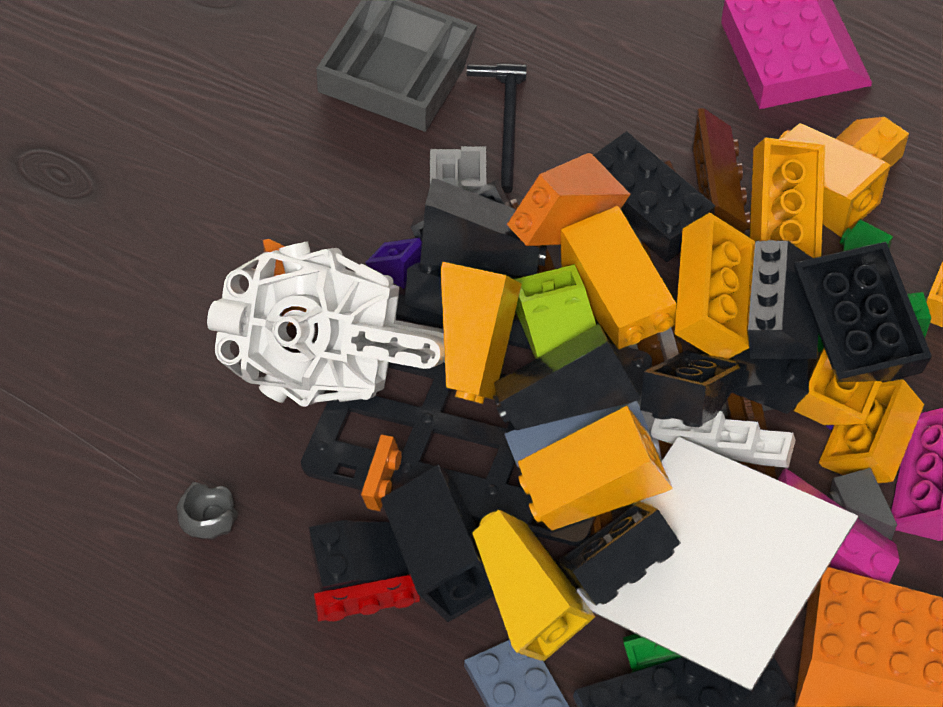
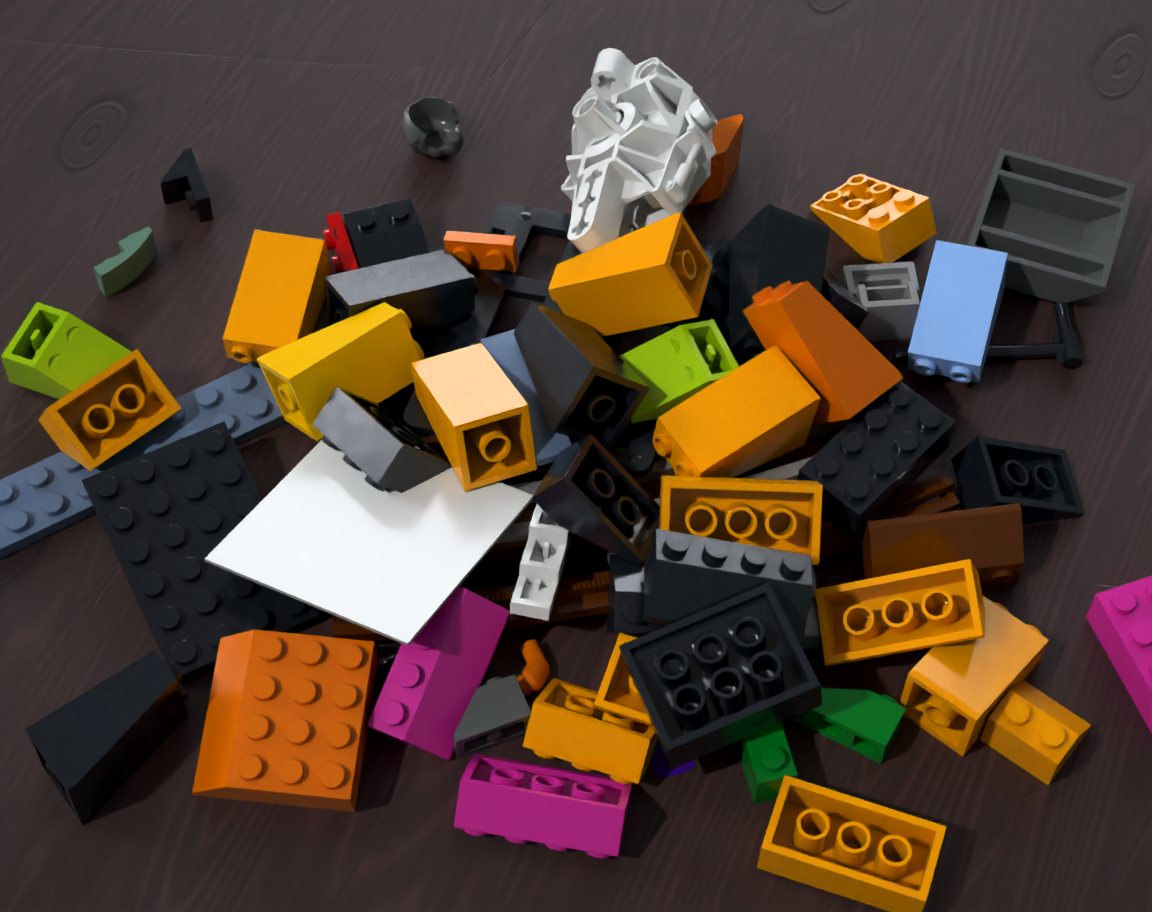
camera: 85 degrees right, 0 degrees up
(358, 178) = (877, 217): none -> light orange slope
(425, 649) = (276, 294): none -> light orange slope
(482, 118) = (957, 311): none -> light blue slope
(651, 120) = (1011, 472): none -> black slope
(811, 471) = (536, 670): none -> orange arm

